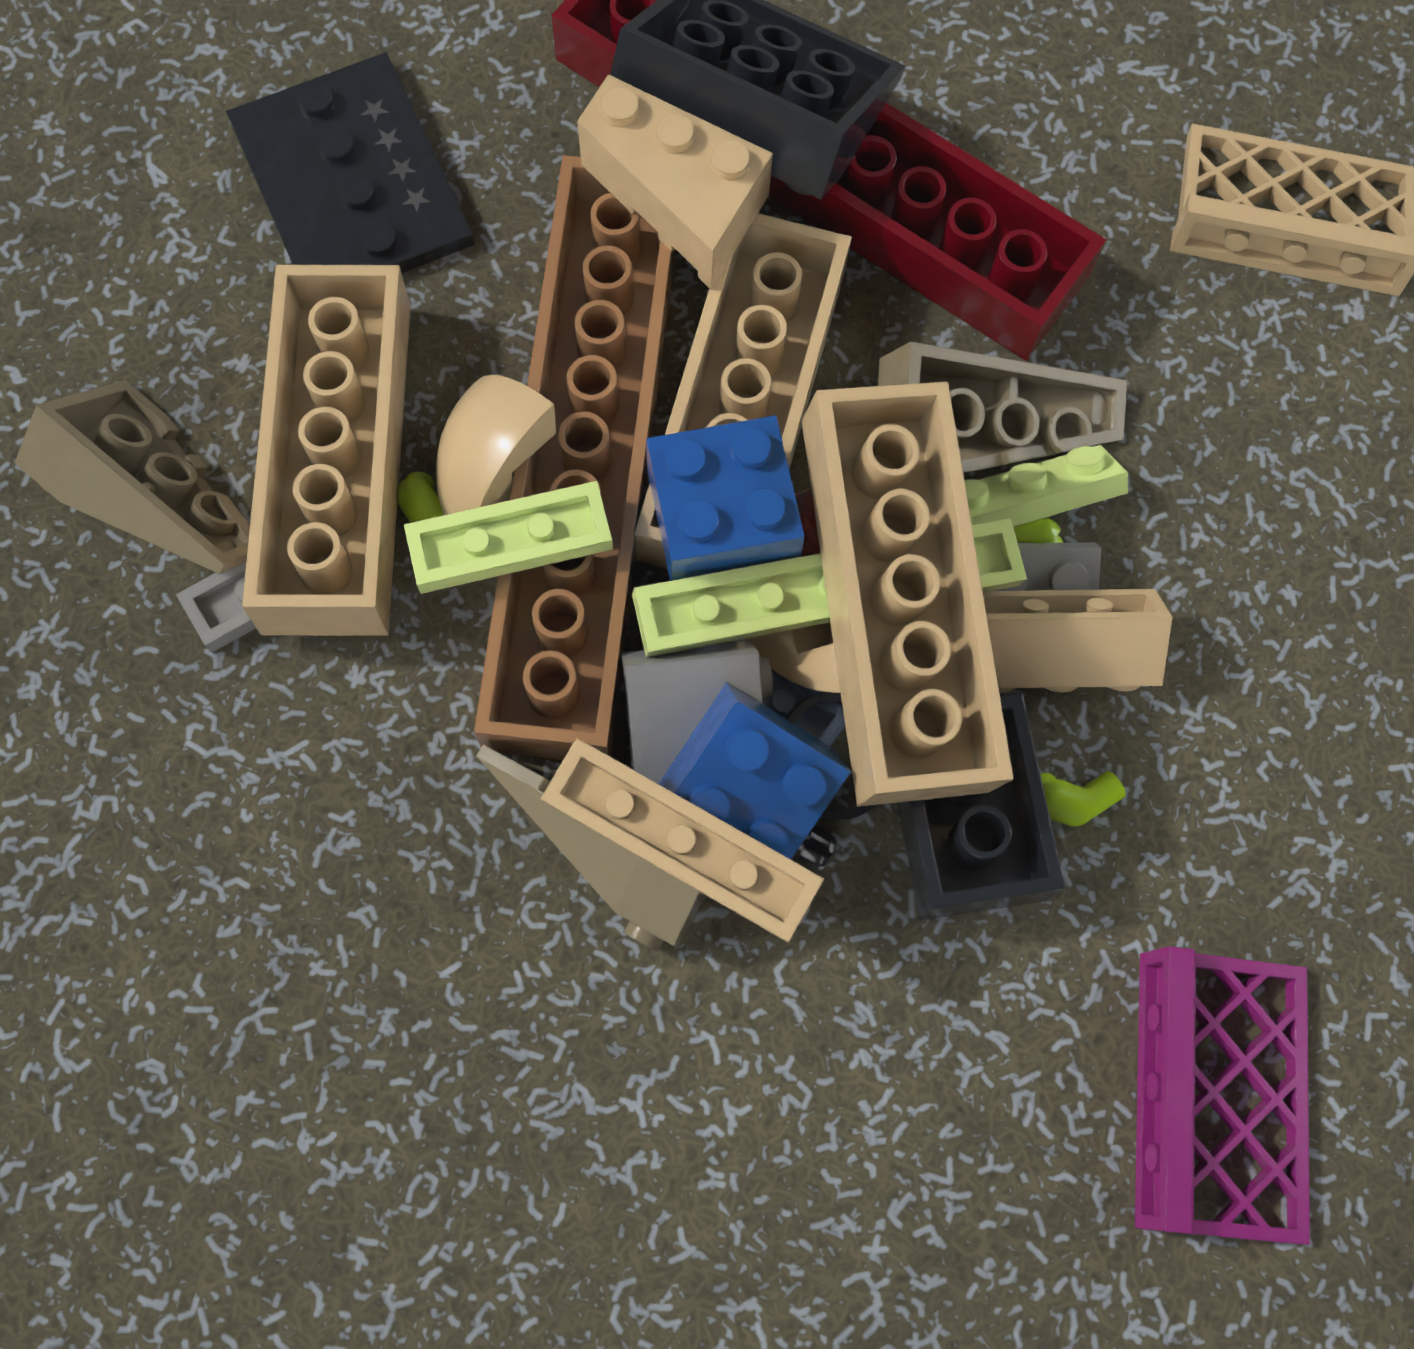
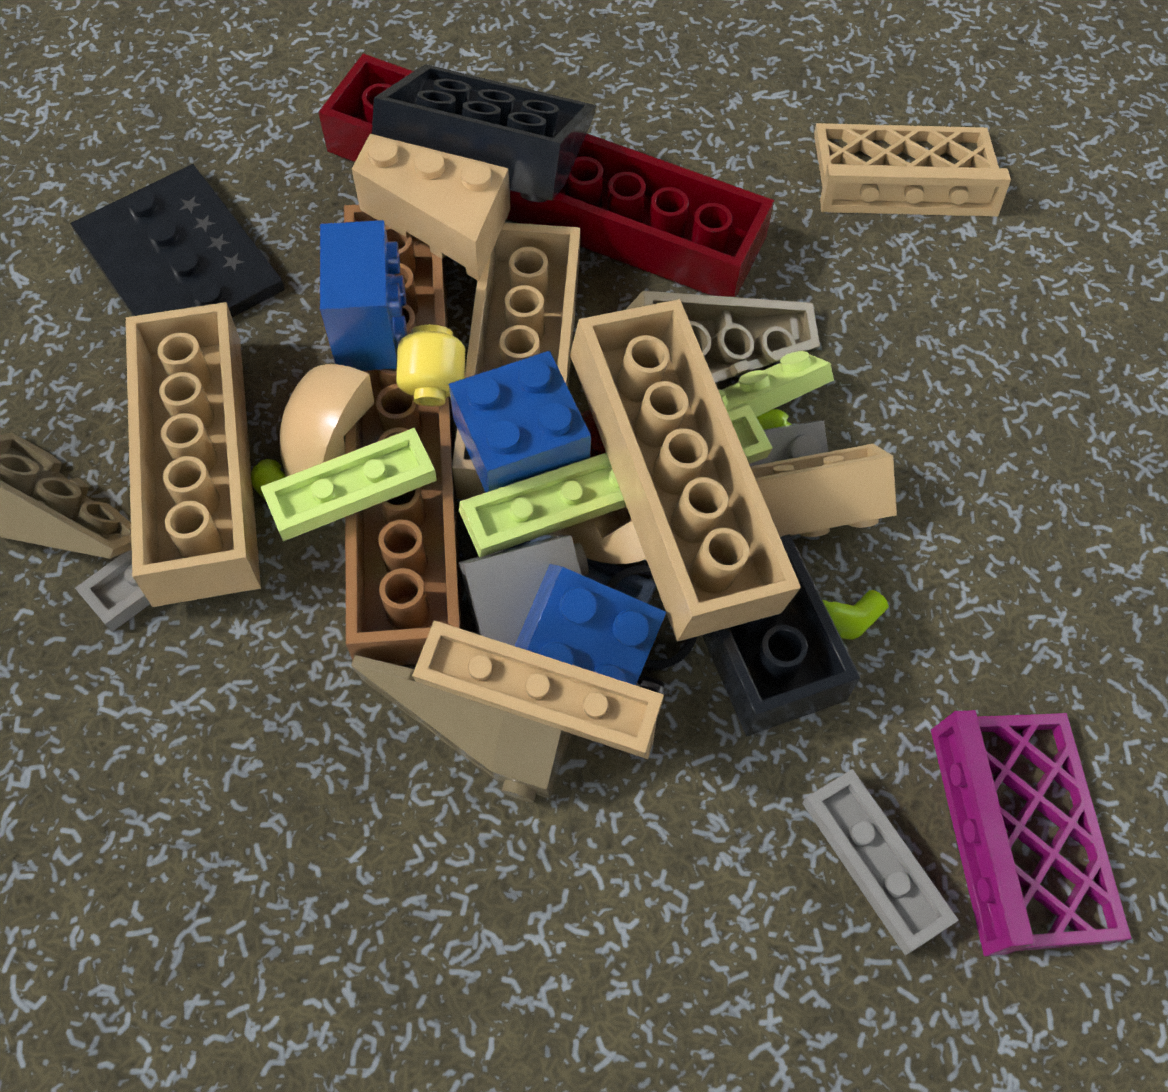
camera: 10 degrees left, 10 degrees down
(561, 298) = (361, 294): none -> blue brick
(630, 400) = (429, 363): none -> light yellow head
(1039, 1099) = (879, 862): none -> light grey plate

